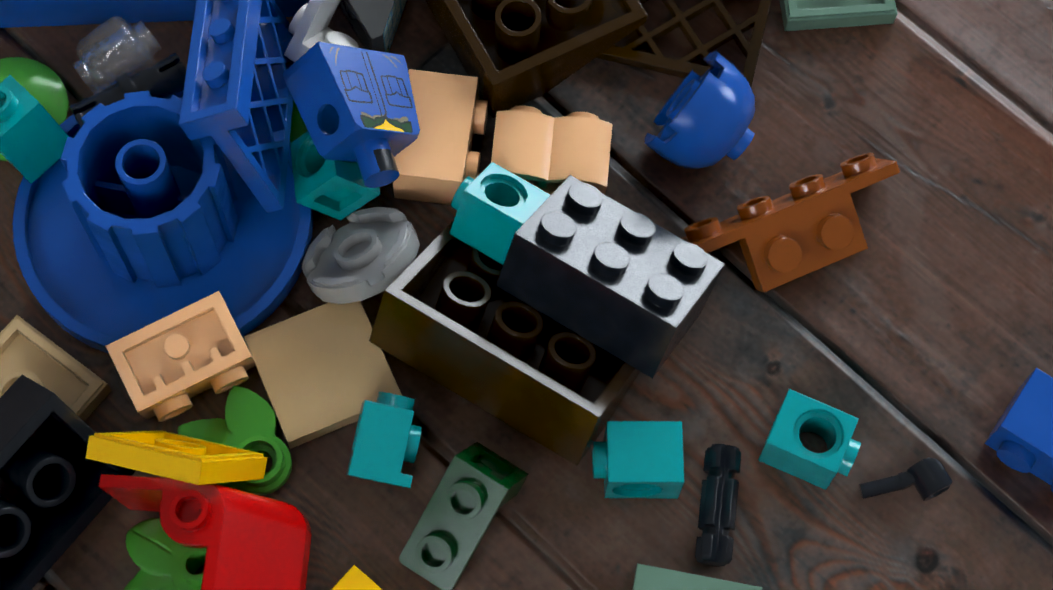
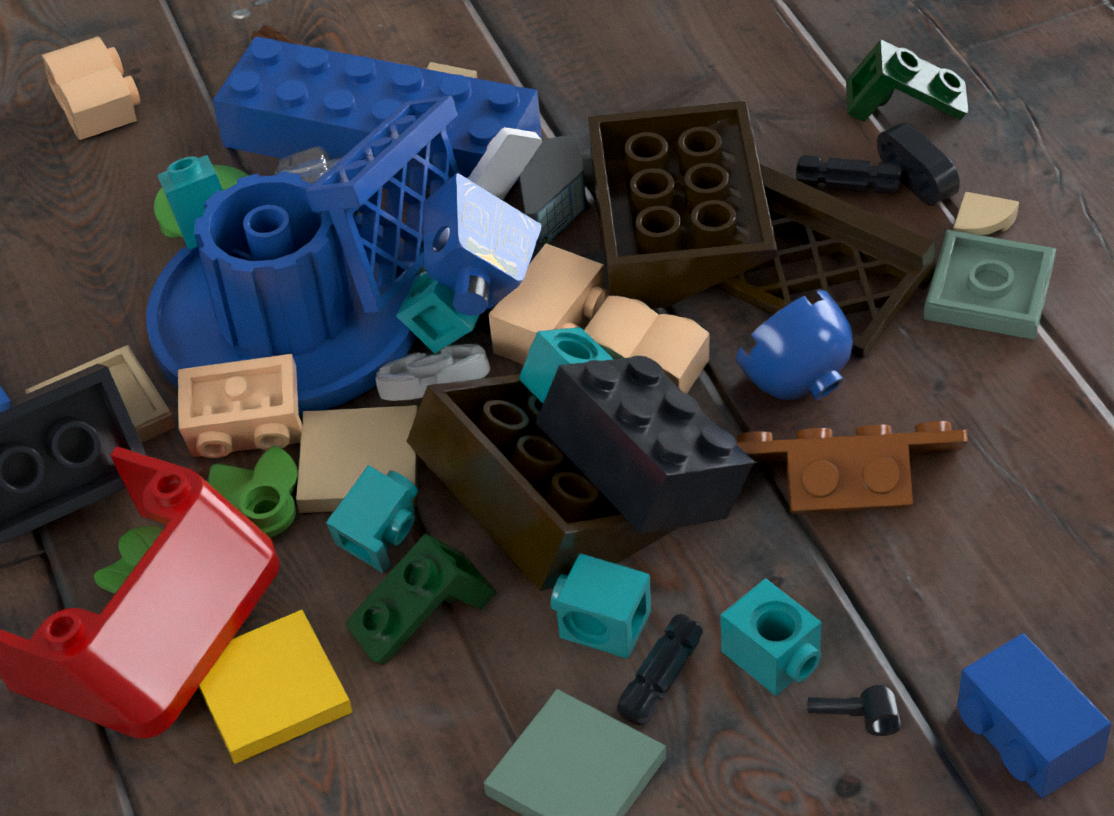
camera: 30 degrees right, 20 degrees down
(176, 457) = (185, 451): yellow tile -> none

